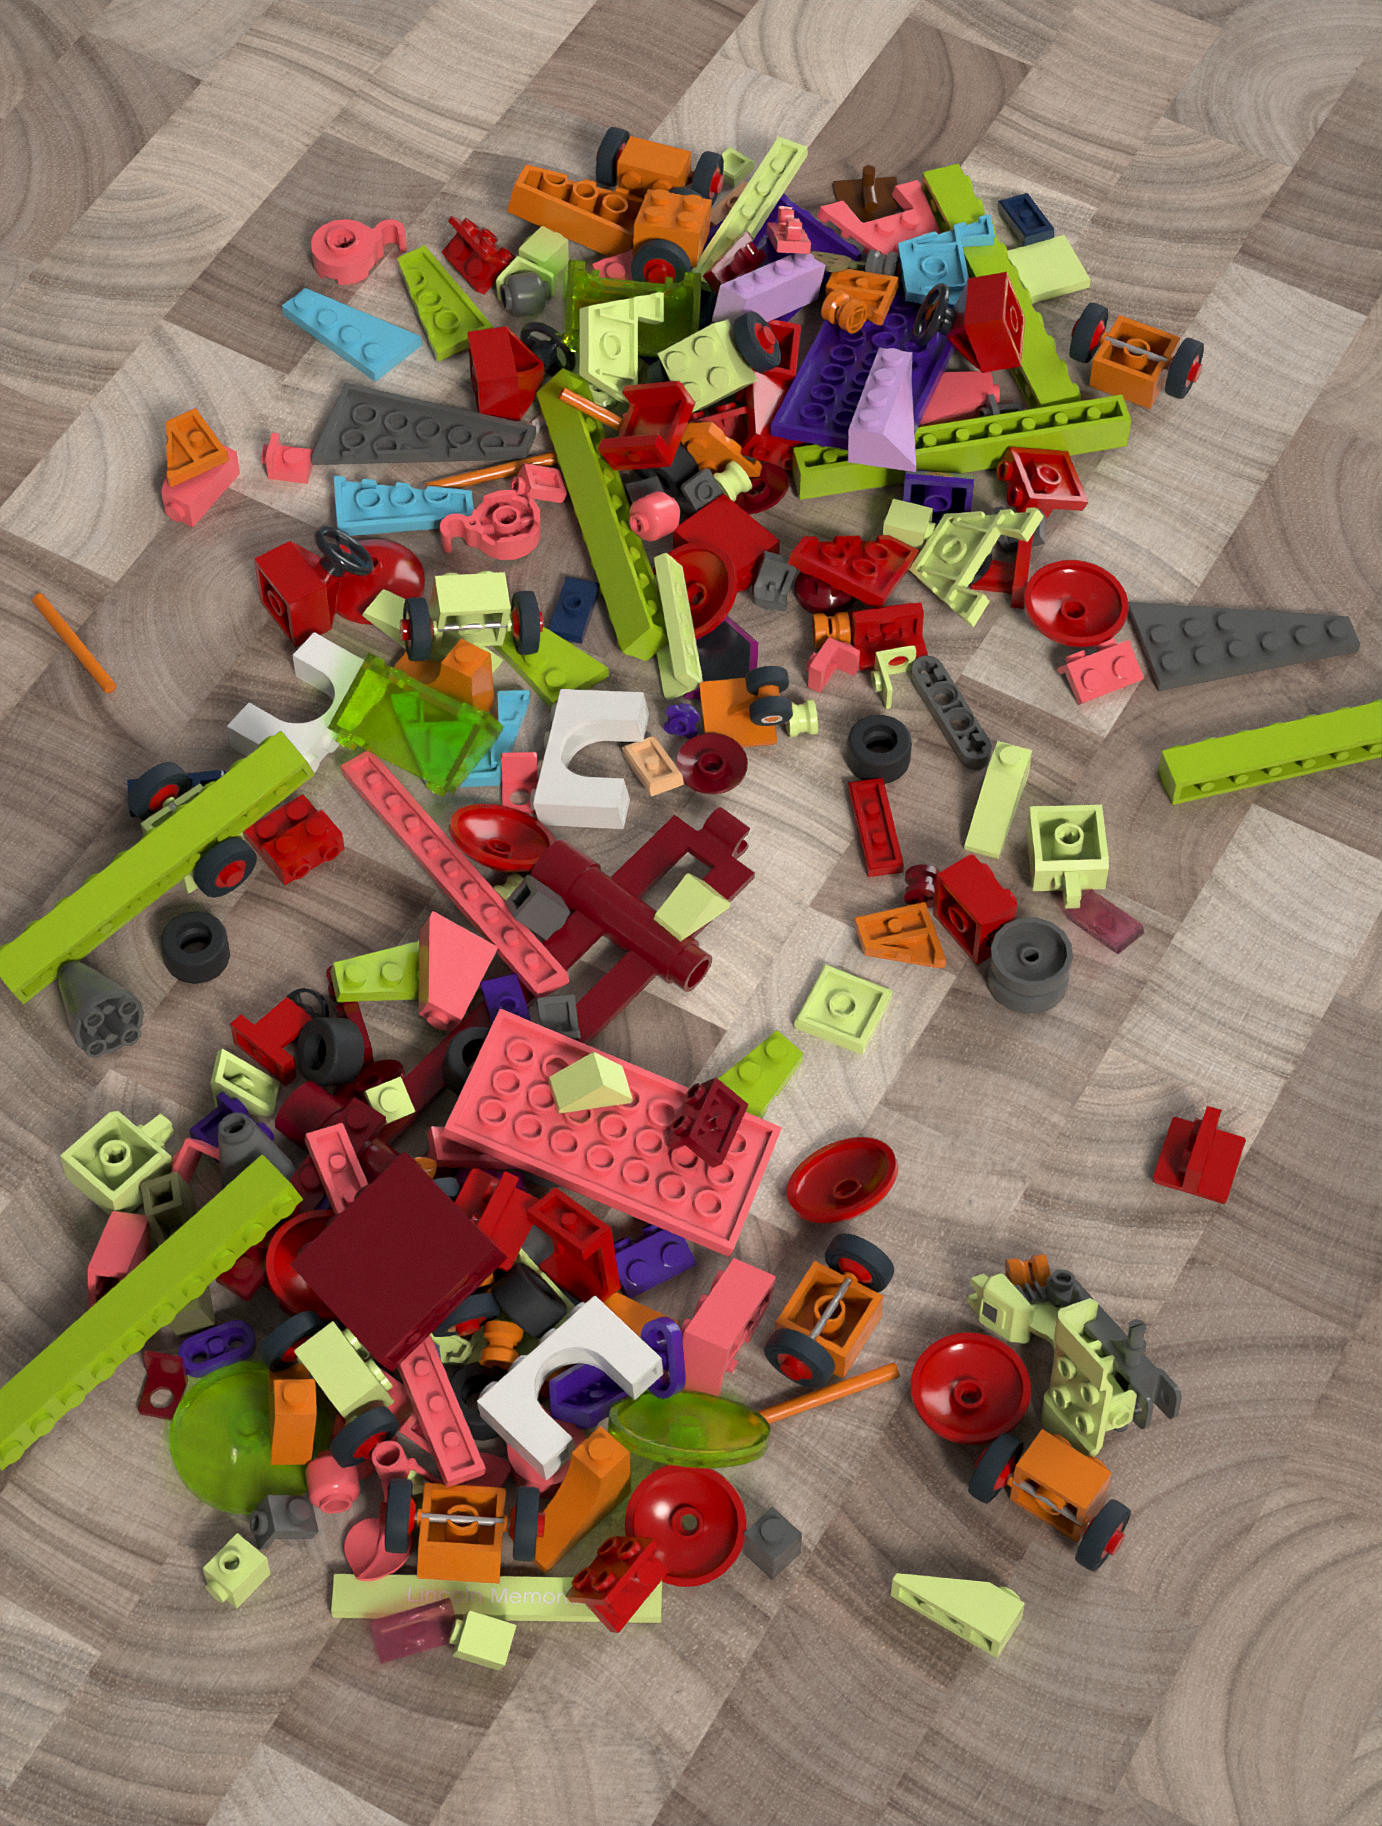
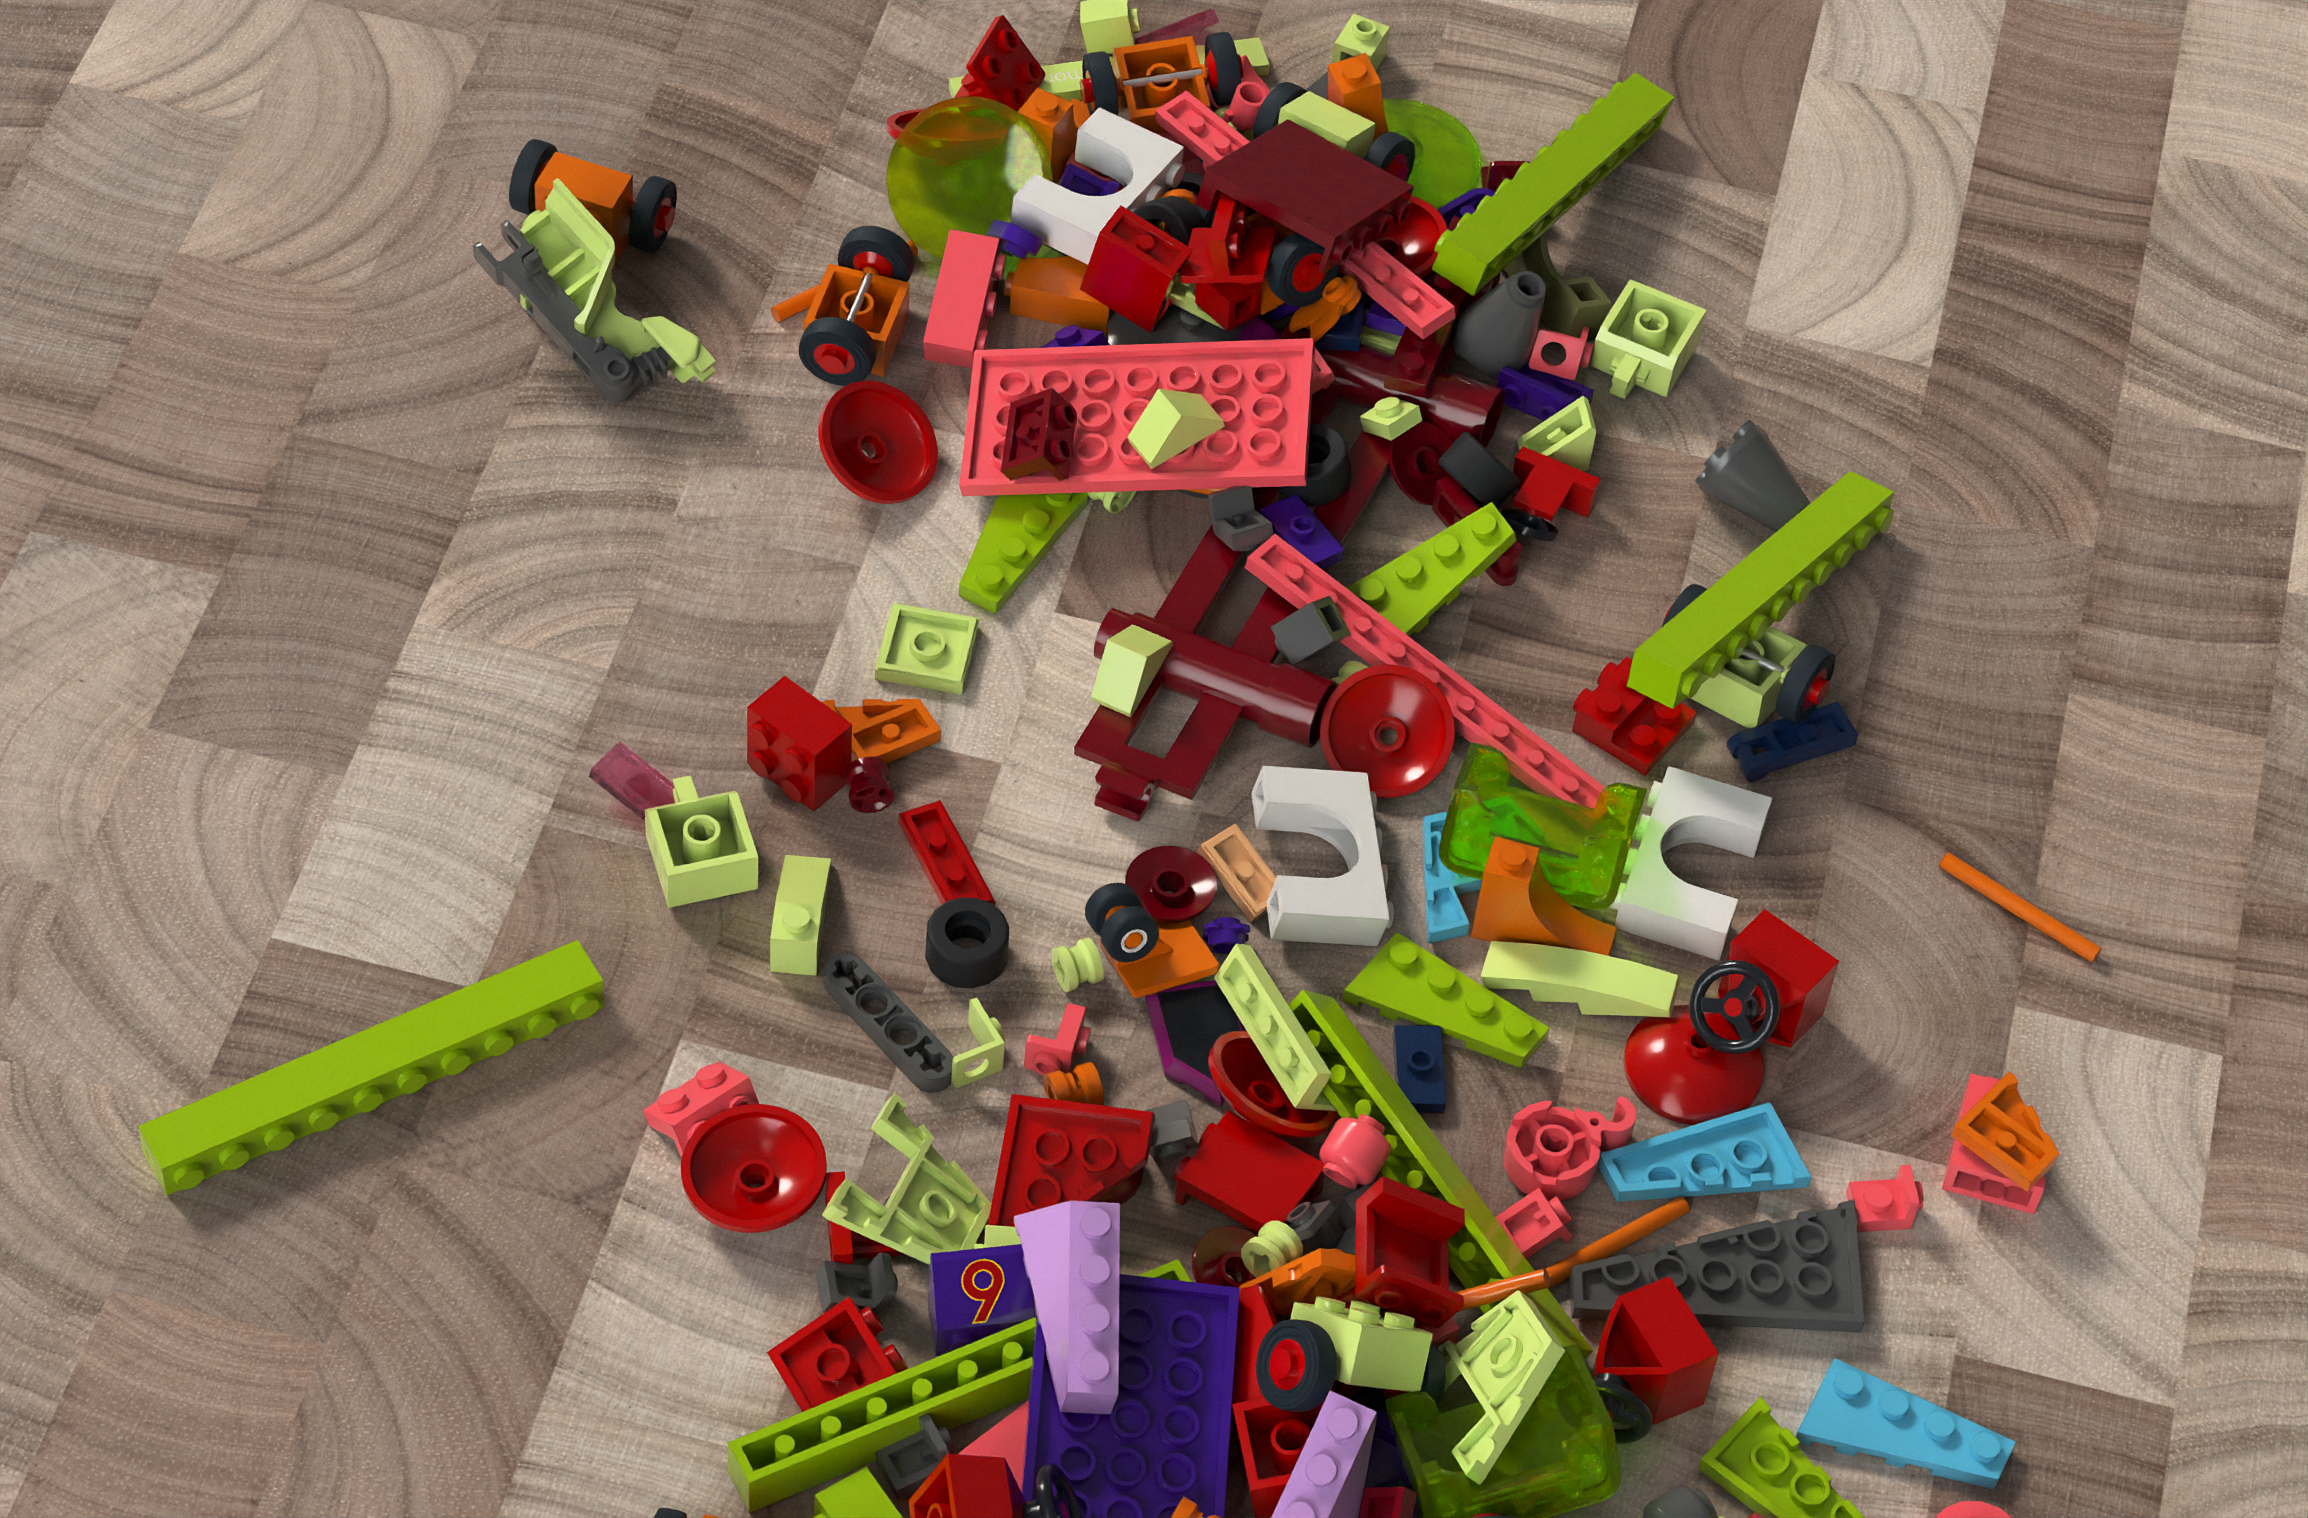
camera: 160 degrees right, 5 degrees down
(118, 1252) = (1597, 244): coral slope -> none
(193, 928) = (1679, 551): black tyre -> none
(449, 970) = (1380, 556): coral slope -> none
(471, 610) = (1535, 952): brick -> none
(518, 774) = (1401, 824): coral bracket -> none
(772, 1543) = (859, 139): dark grey brick -> none
(887, 629) = (983, 1096): red bracket -> none
(965, 1607) = (661, 123): yellowish green slope -> none
(973, 1368) = (694, 279): red dish -> none
(1028, 1271) = (655, 405): orange wheel -> none
(1029, 965) = (711, 700): dark grey wheel -> none
(1199, 1157) = (485, 551): red bracket -> none
(1214, 643) = (540, 1192): dark grey wing -> none

